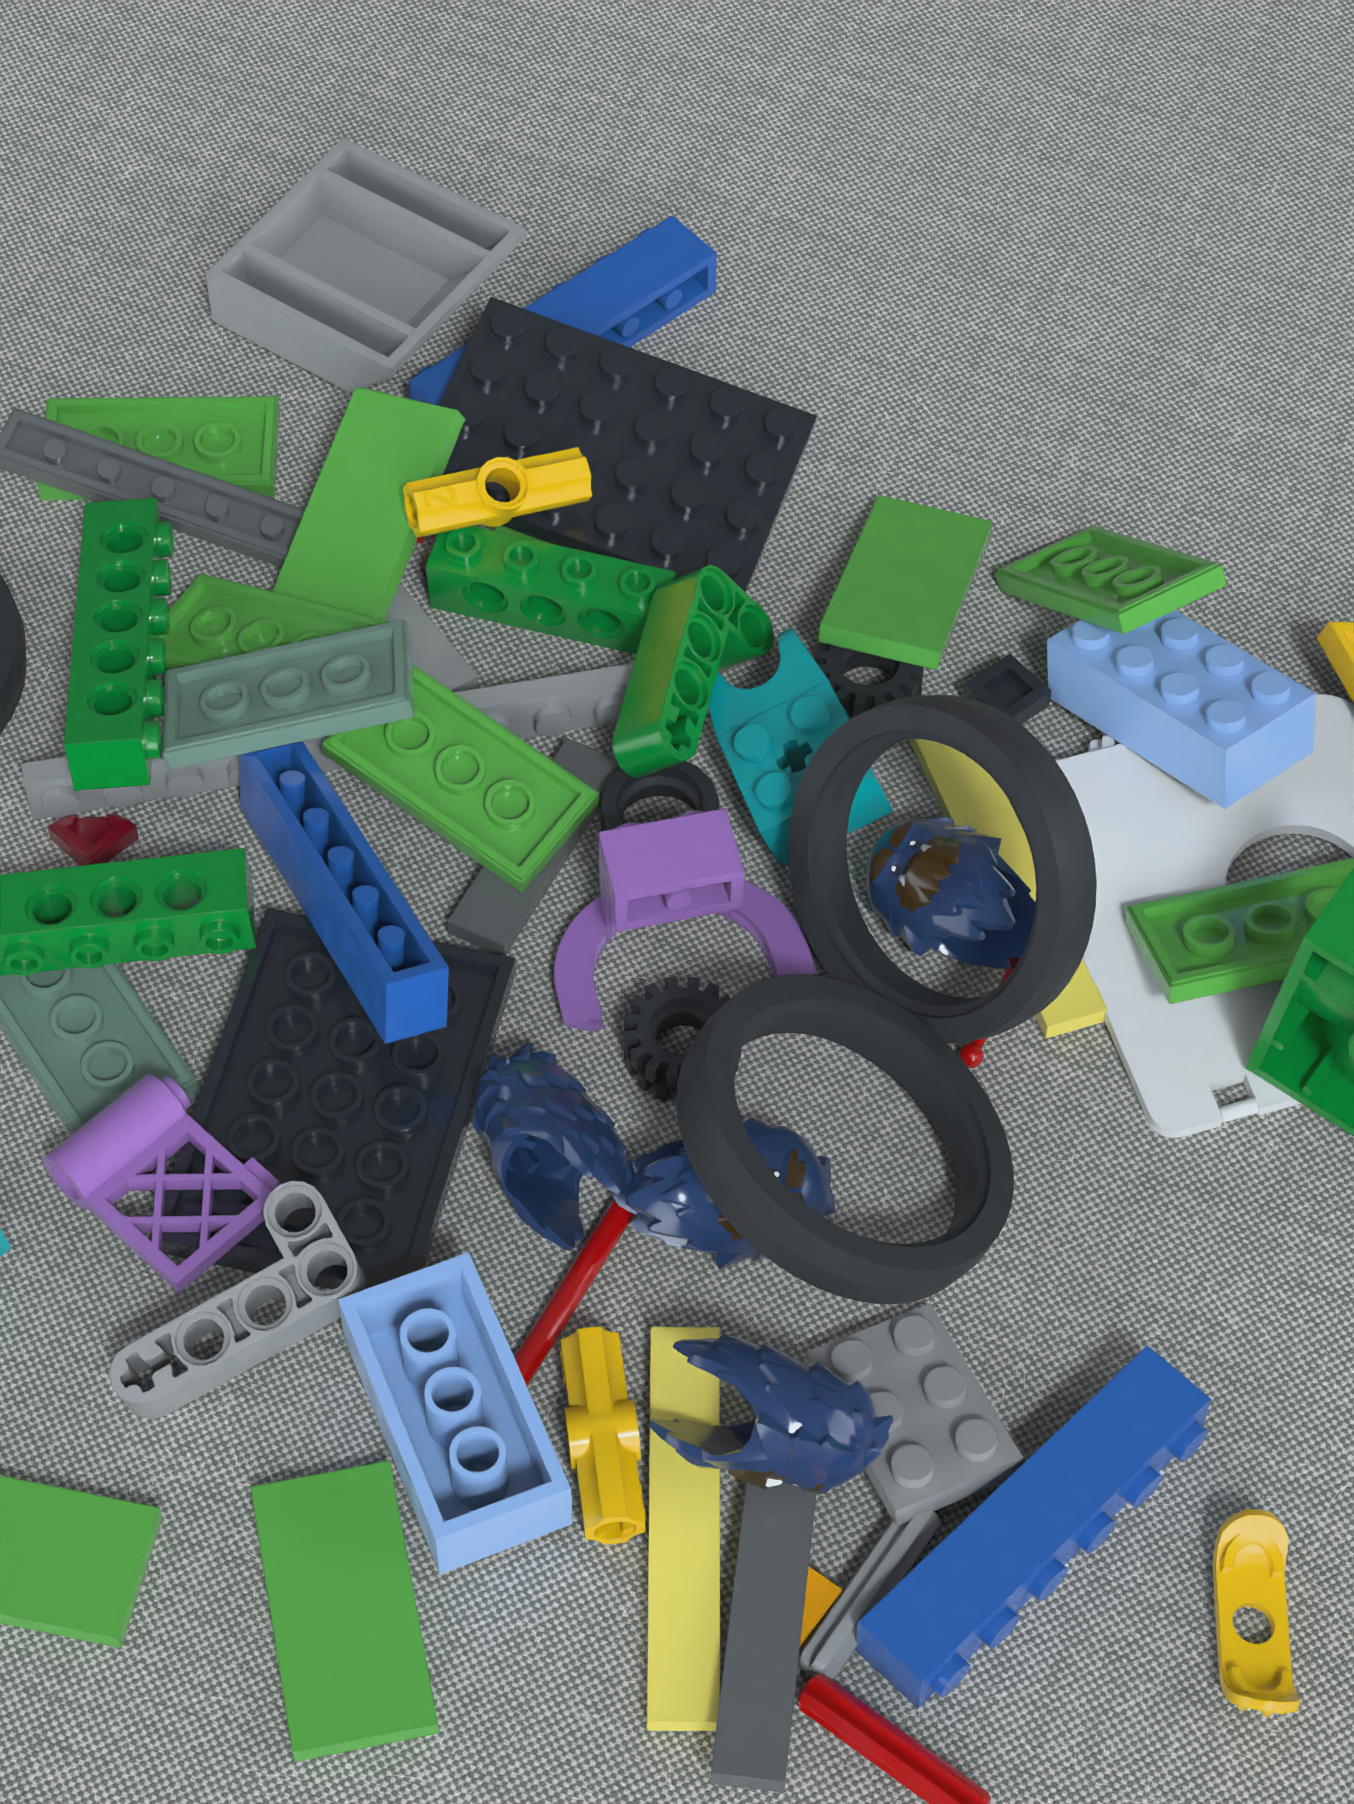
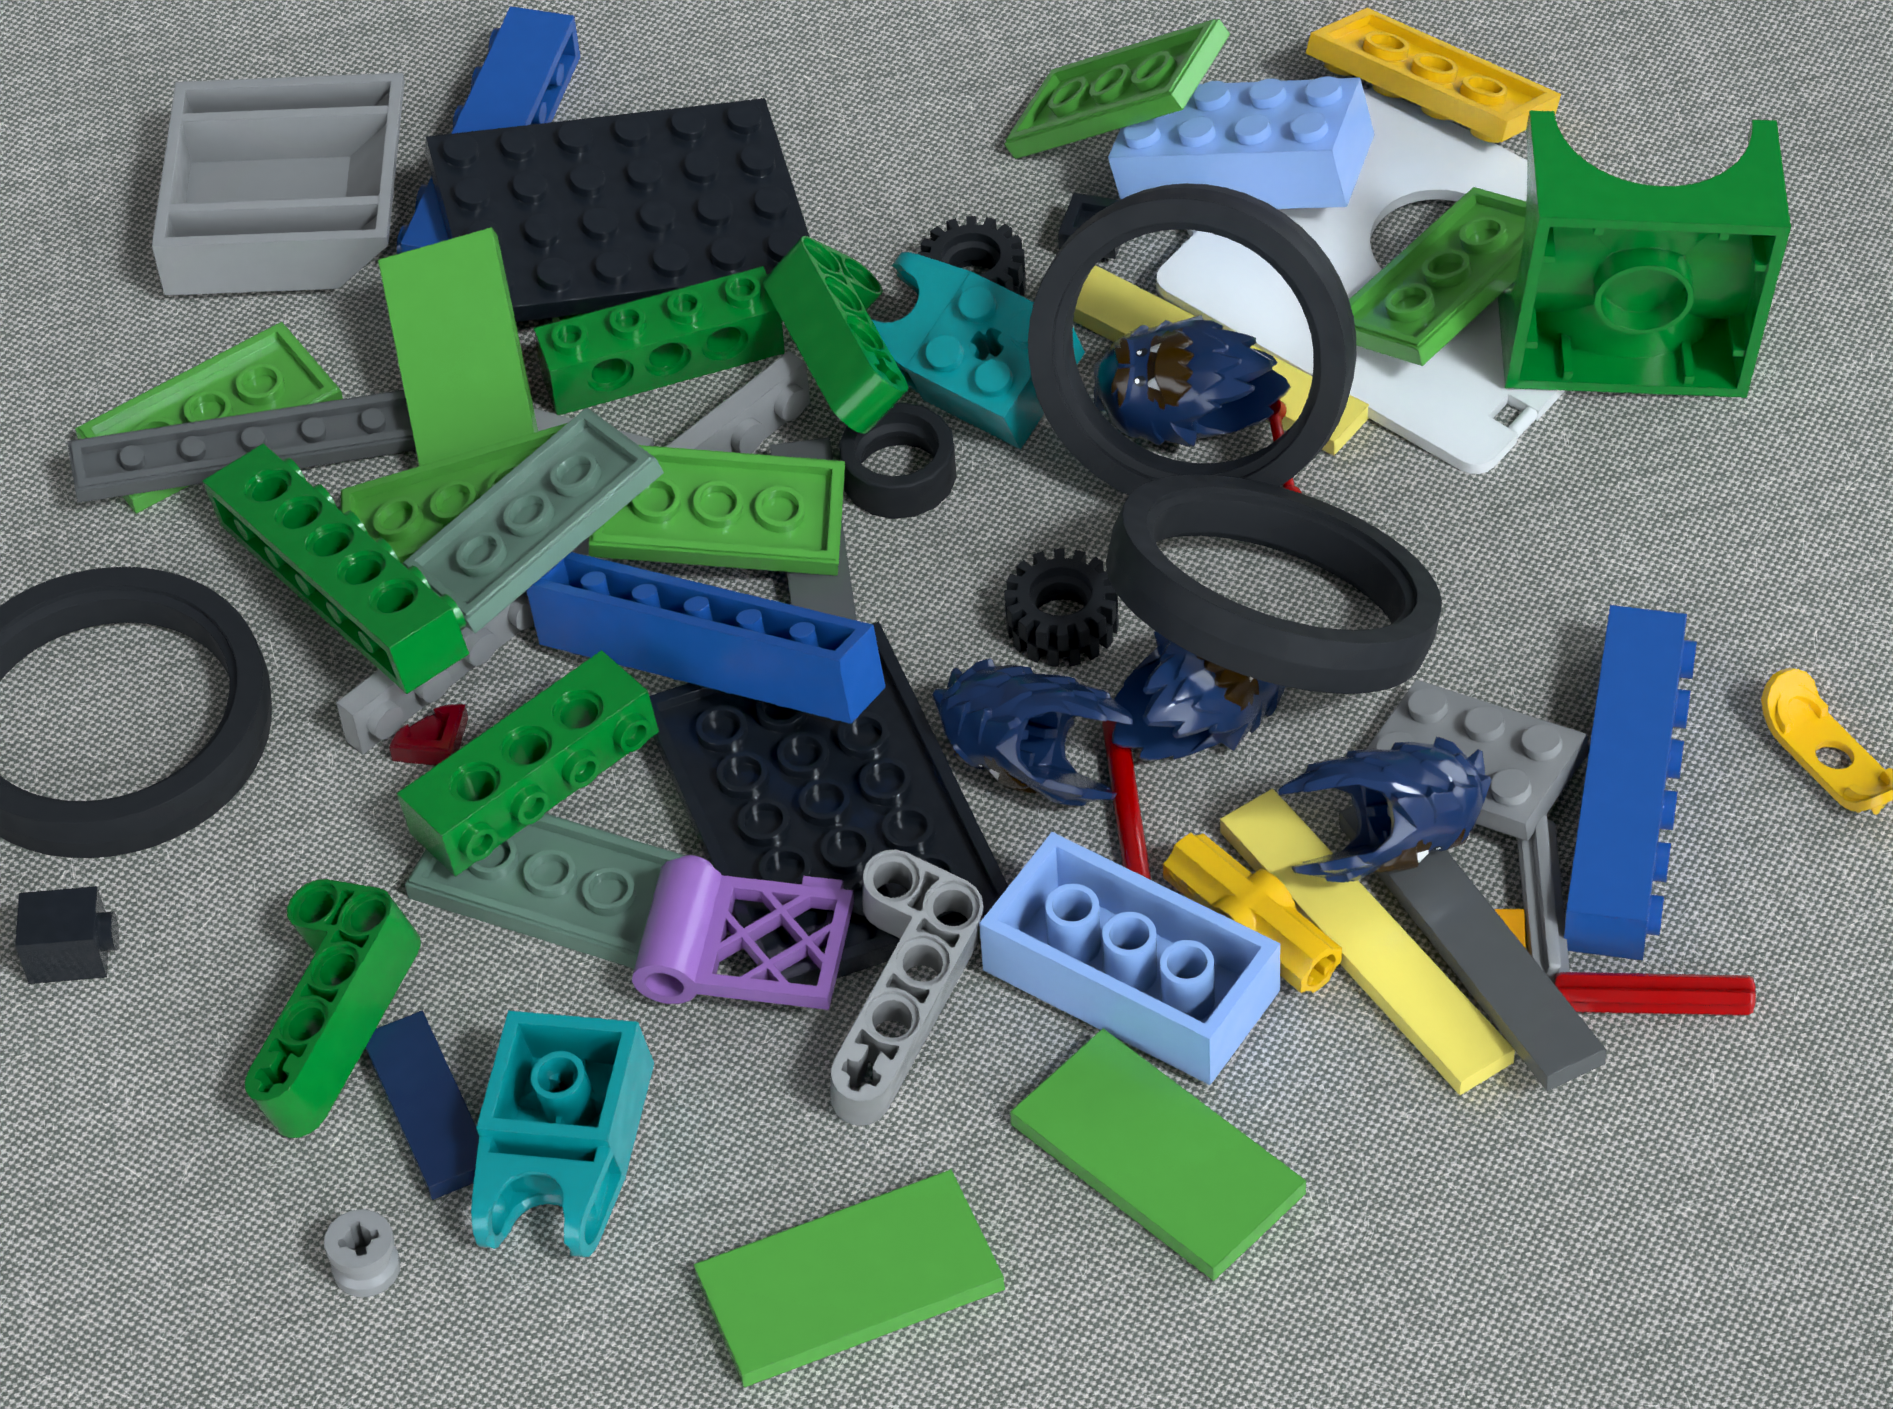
camera: 30 degrees left, 5 degrees down
(462, 500) = (572, 276): yellow piece -> none
(663, 876) = (960, 482): medium lavender piece -> none
(906, 582) = (948, 182): bright green tile -> none

